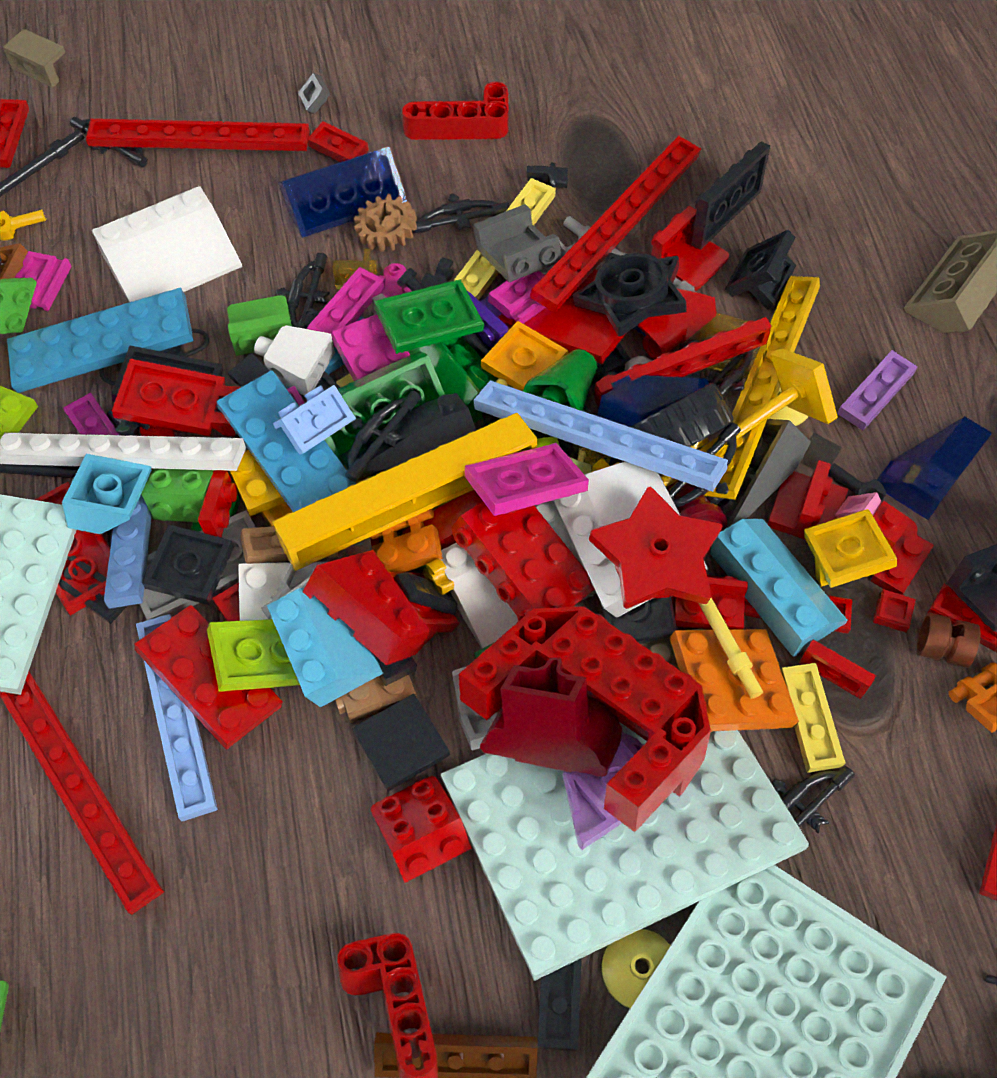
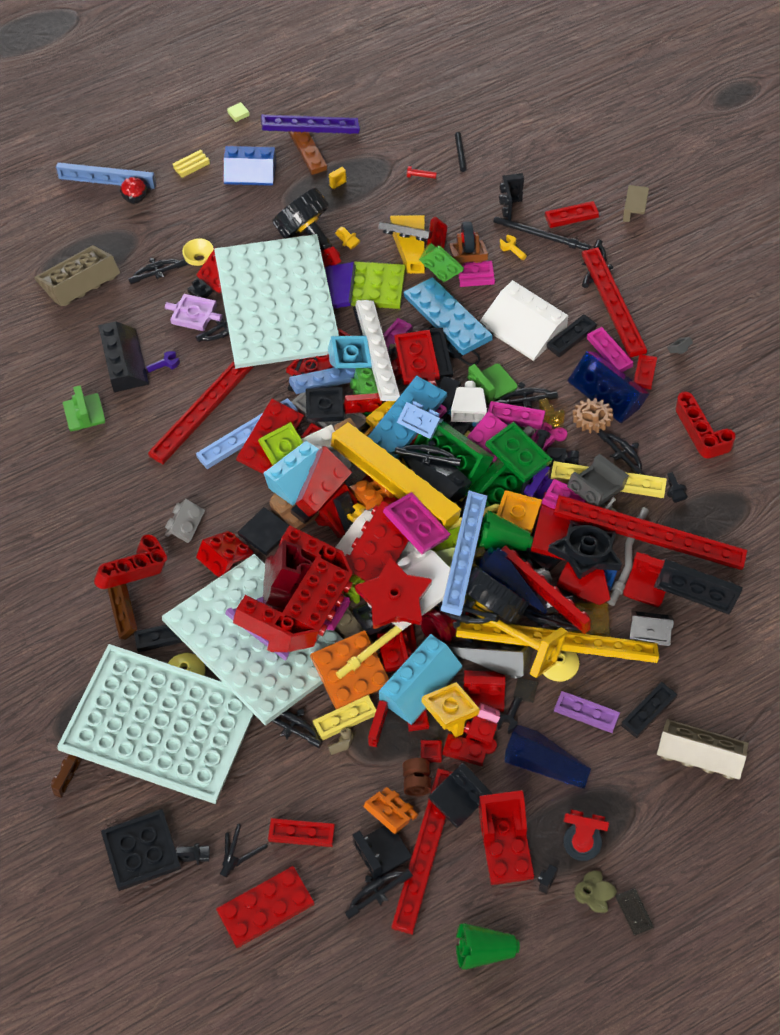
camera: 75 degrees right, 5 degrees down
(227, 203) = (571, 335): none -> black plate
(271, 170) = (609, 349): none -> dark pink plate
(318, 882) = (185, 520): none -> light grey bracket
(855, 734) = (344, 742): none -> dark tan arm
(891, 319) = (649, 710): none -> black plate

